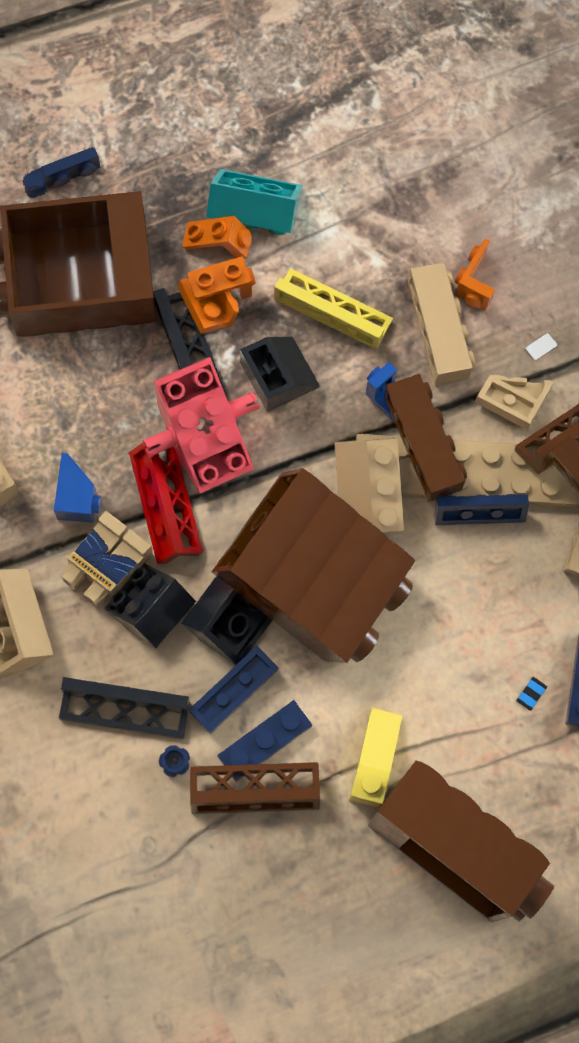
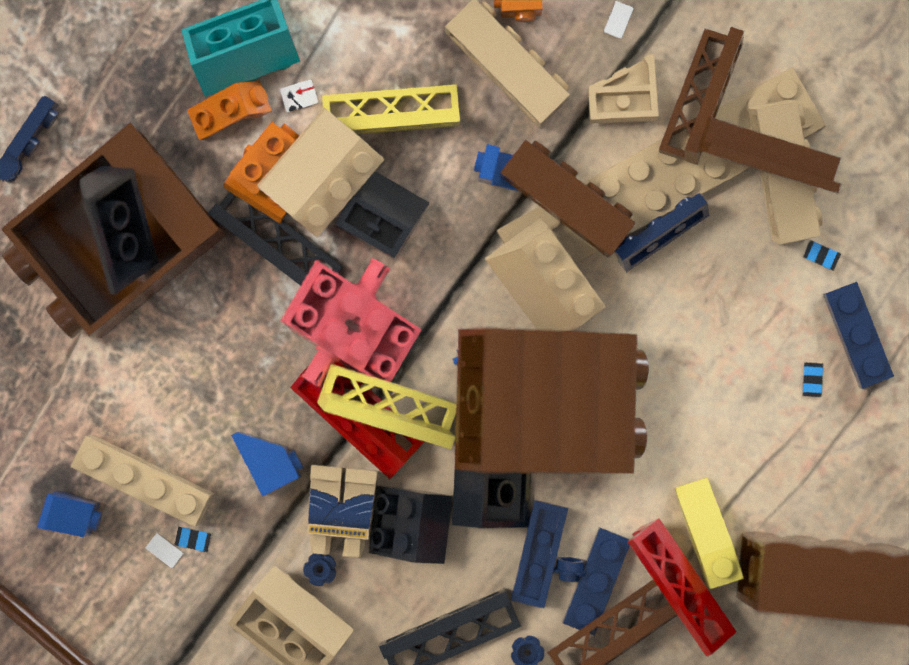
camera: 25 degrees left, 15 degrees up
(62, 604) = (328, 574): none -> dark blue plate
(82, 251) = (118, 225): none -> black slope
(182, 508) = (383, 418): none -> light yellow fence
(249, 716) = (569, 569): none -> dark blue plate
(253, 308) = (320, 172): none -> tan slope
(273, 260) = (299, 95): none -> white sticker
(329, 782) = (682, 586): none -> red fence

